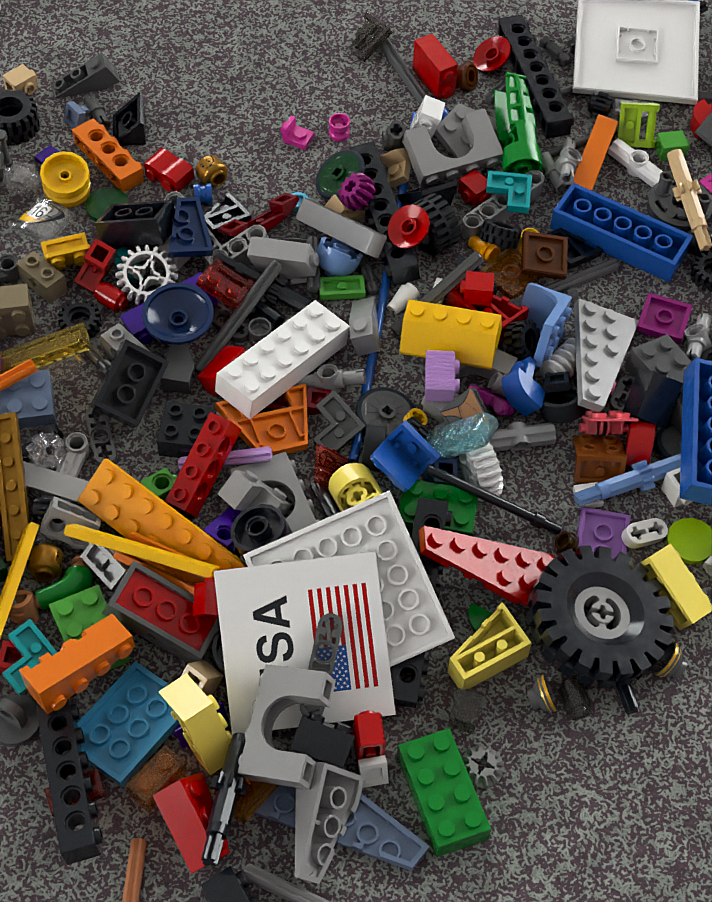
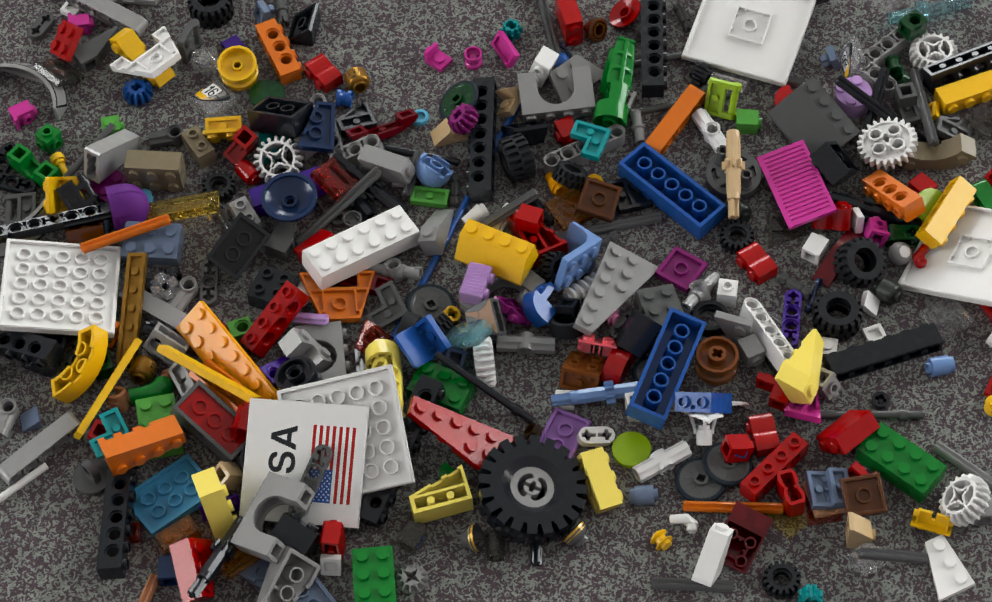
camera: 20 degrees right, 0 degrees up
(155, 829) = (166, 571): none -> dark blue brick
(341, 227) = (442, 147): light grey beam -> none
(372, 91) = (512, 29): none -> teal gear
(372, 112) = (505, 49): none -> dark pink tile
(393, 136) = (511, 74): dark grey piece -> none
(403, 221) = (491, 157): red dish -> none
(567, 161) = (649, 121): light grey pin -> none

